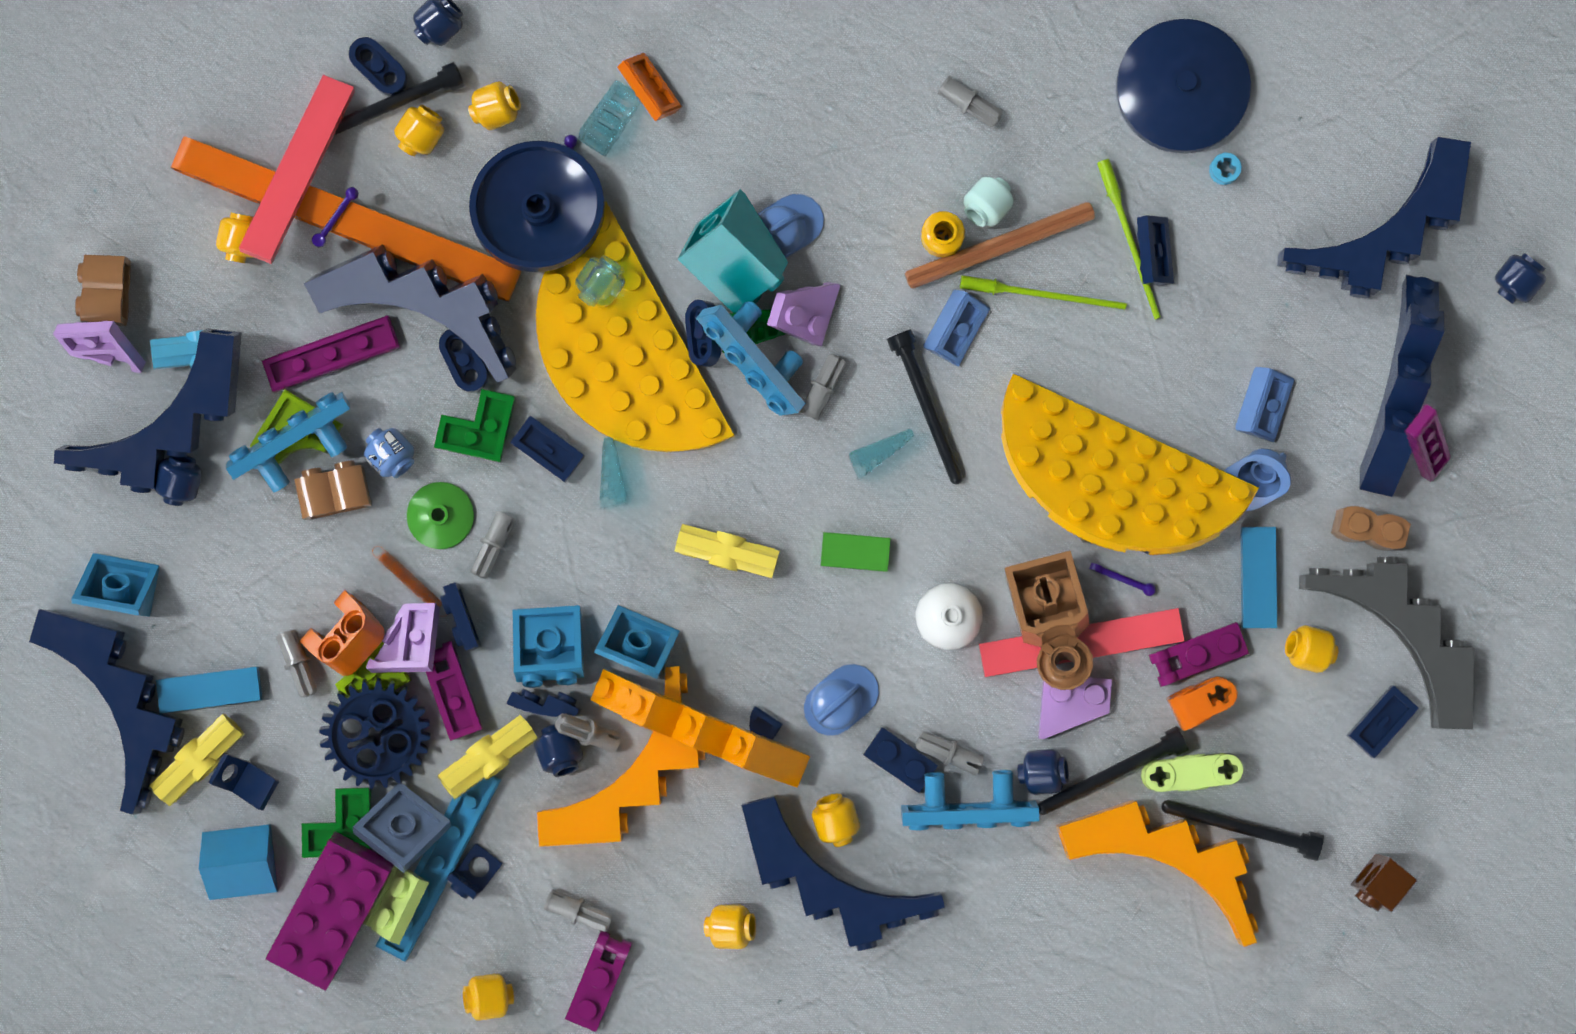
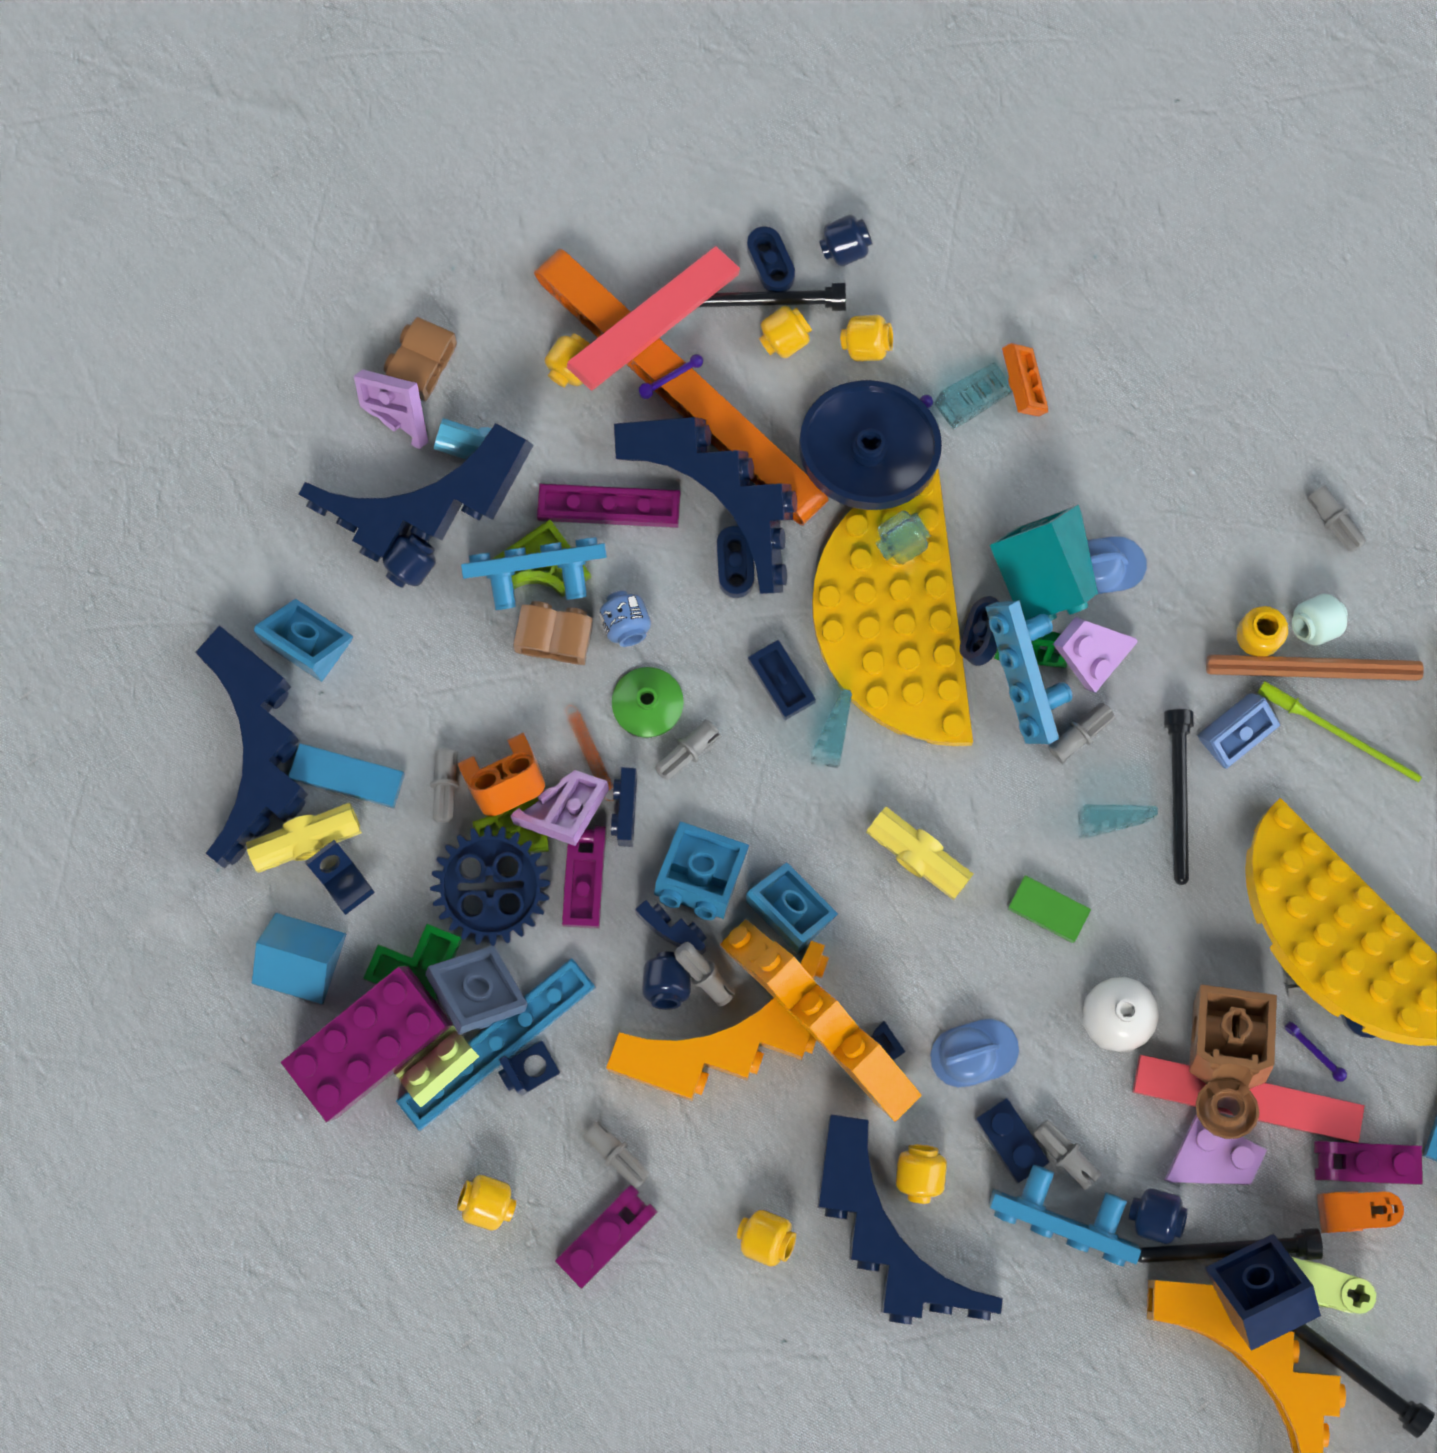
camera: 25 degrees right, 10 degrees down
(483, 437) = (722, 642): green plate -> none
(487, 757) = (592, 956): light yellow piece -> none
(1148, 800) = (1263, 1291): none -> dark blue slope

